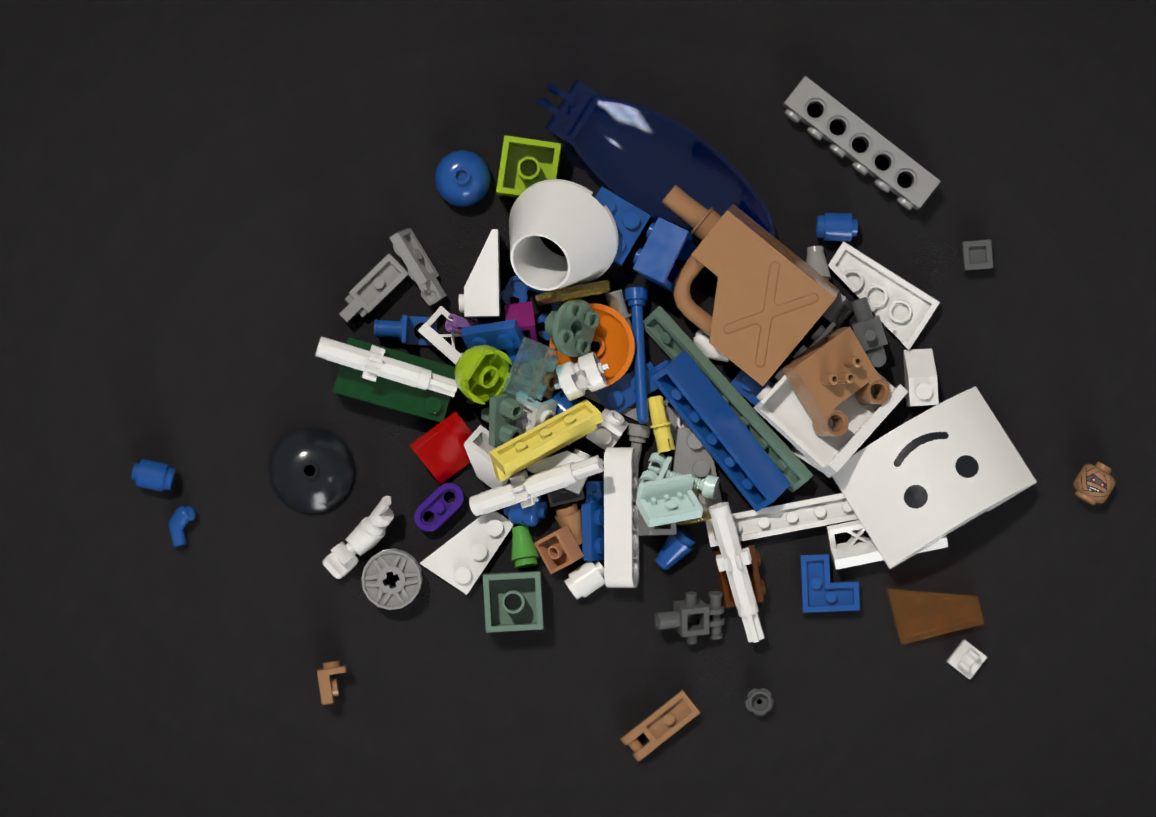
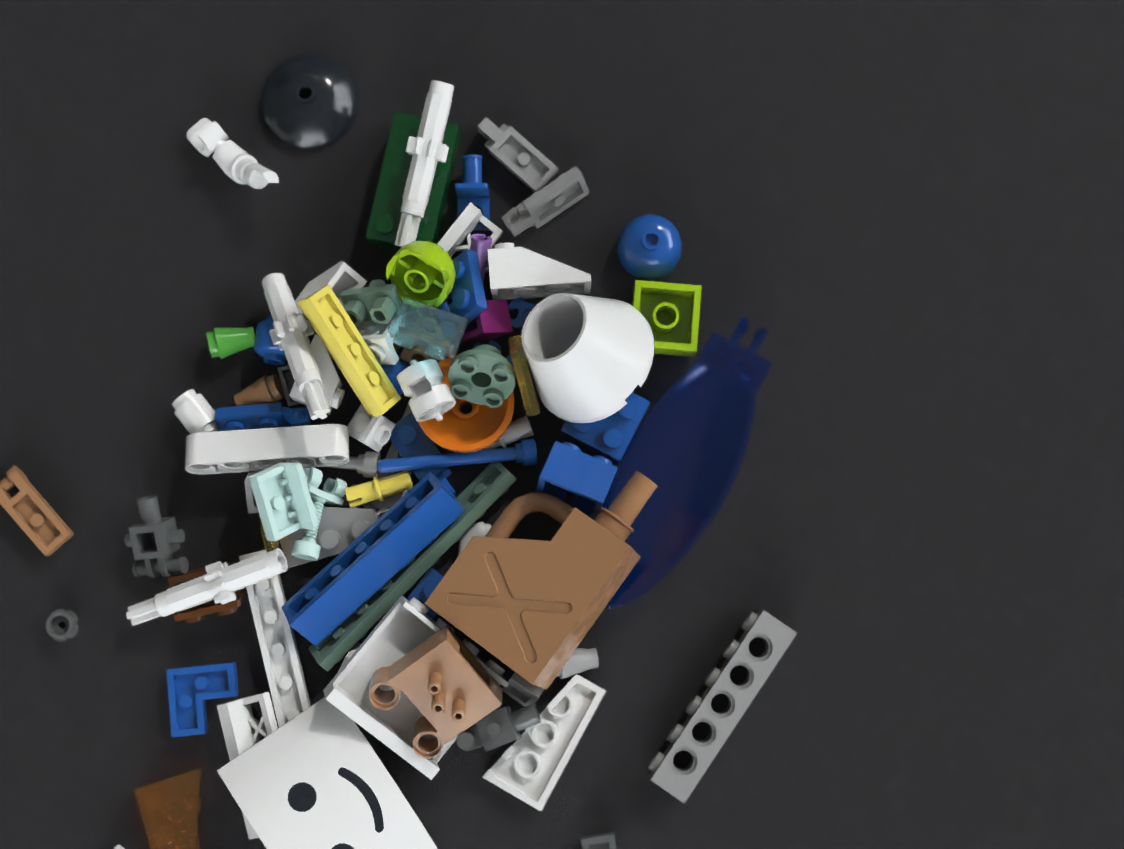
camera: 85 degrees right, 5 degrees down
(327, 685) = (65, 129): medium nougat bracket -> none
(385, 594) = (170, 189): light grey wheel -> none
(439, 507) = (273, 244): dark purple plate -> none
(443, 447) = (337, 239): red tile -> none
(469, 552) = (223, 280): white wing -> none
(513, 601) = (165, 331): sand green brick -> none
(558, 549) = (228, 380): nougat piece -> none
(675, 549) = (235, 515): blue cone -> none
(836, 227) = (622, 681): blue brick -> none
(920, 377) = (449, 793): white slope -> none

